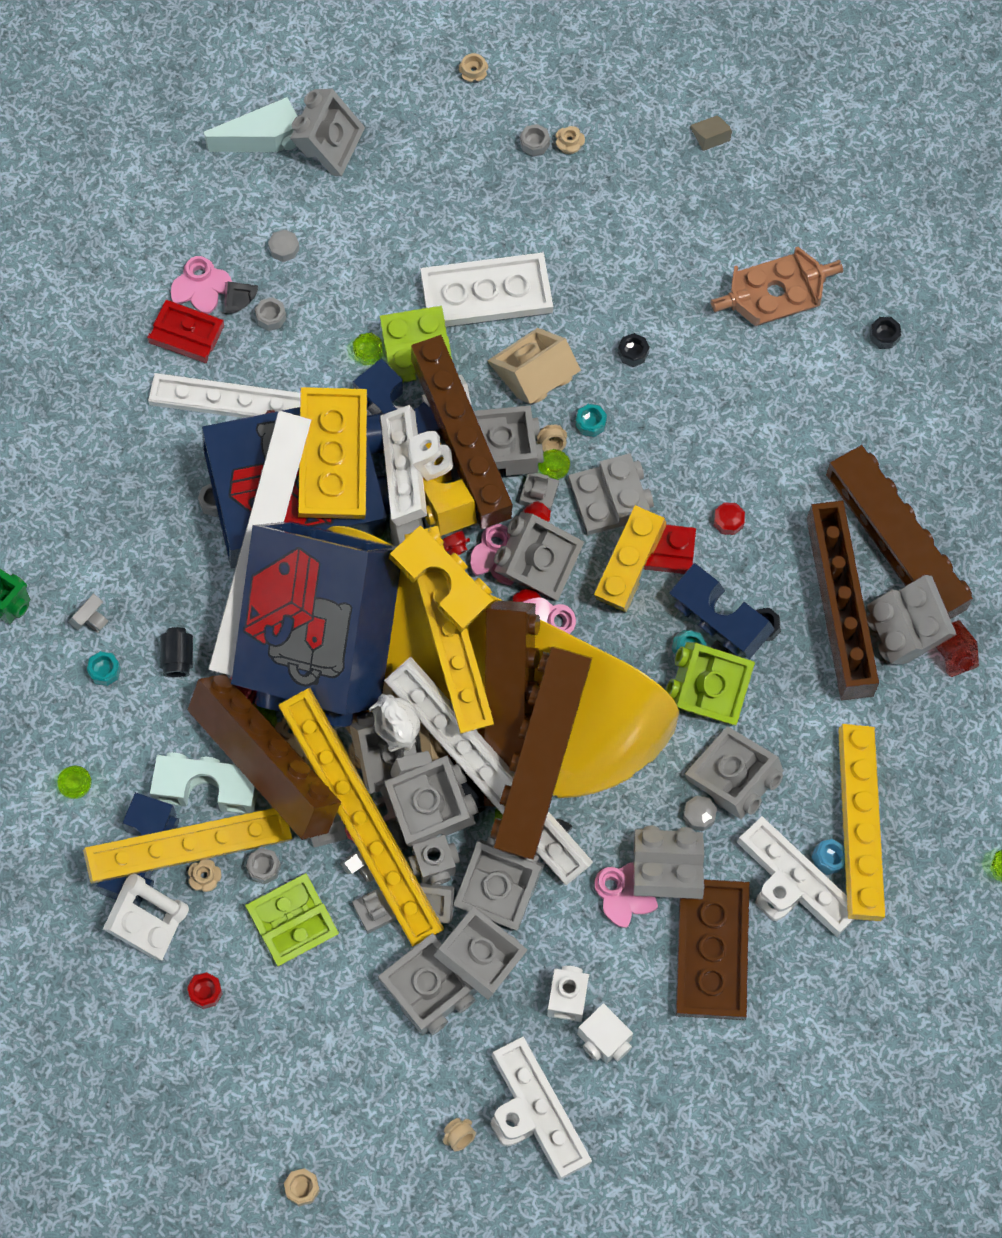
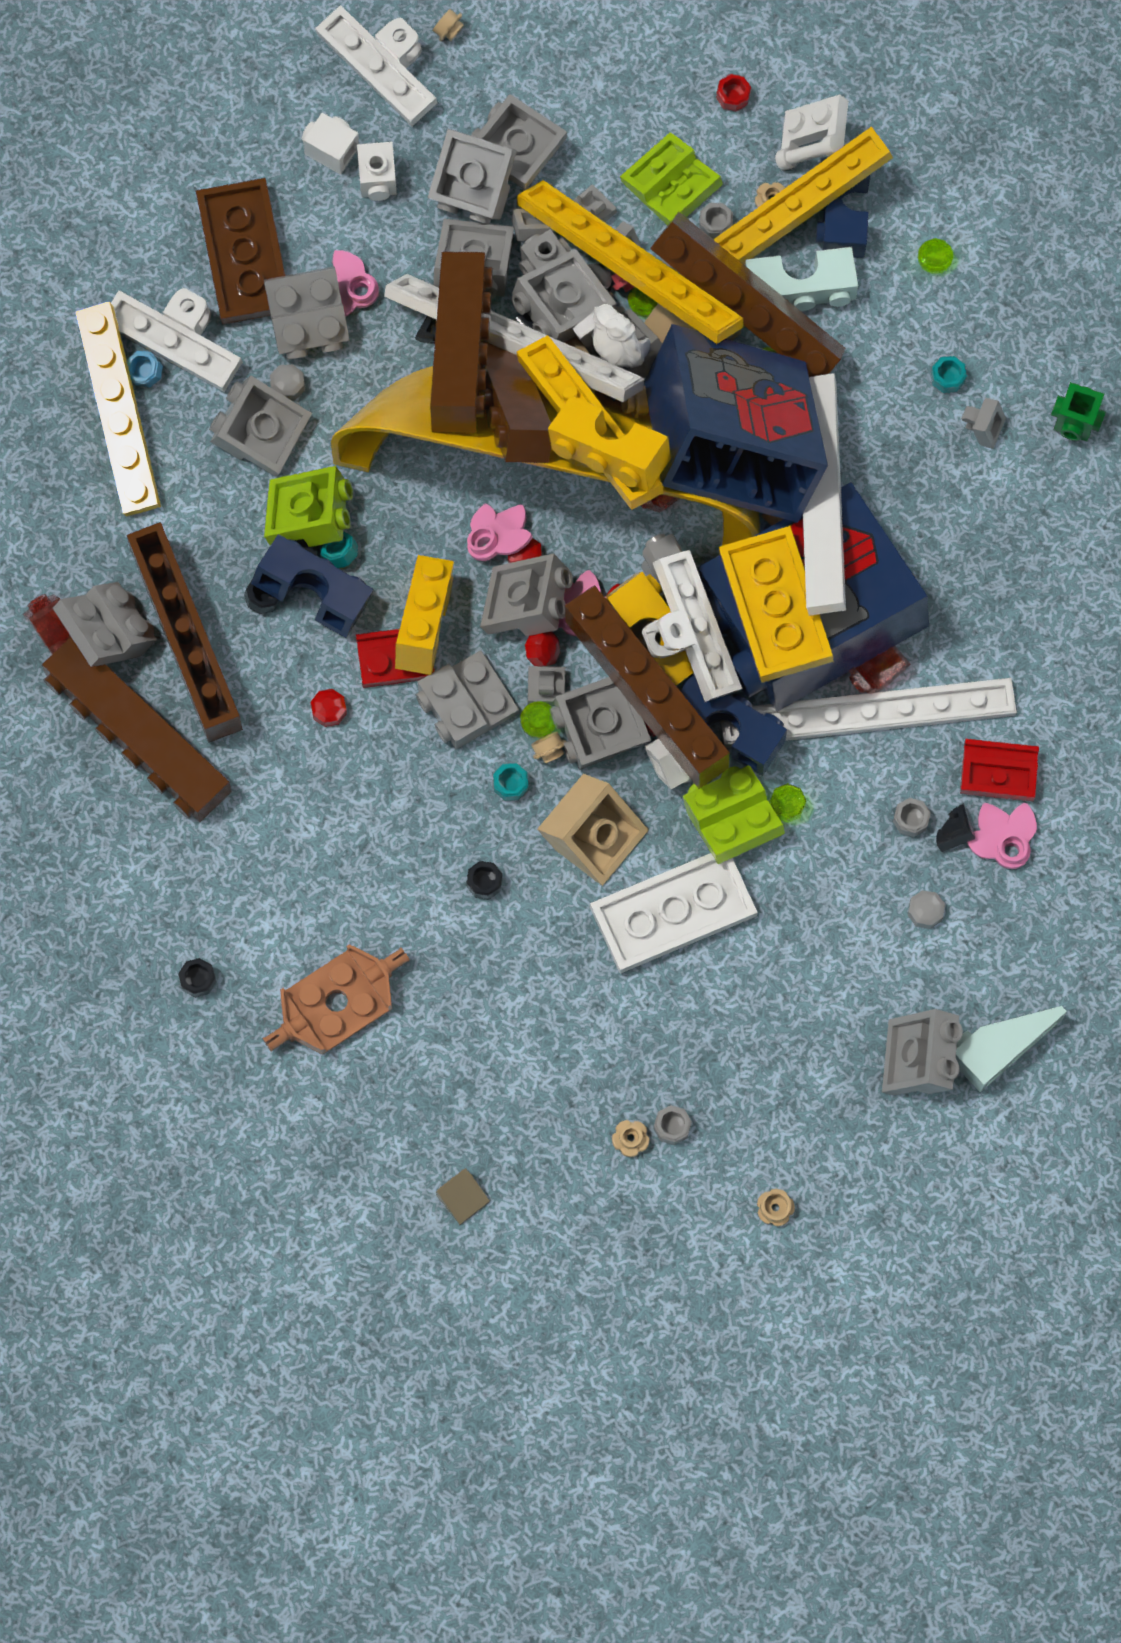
camera: 165 degrees right, 5 degrees up
(176, 652) = (878, 406): black brick -> none

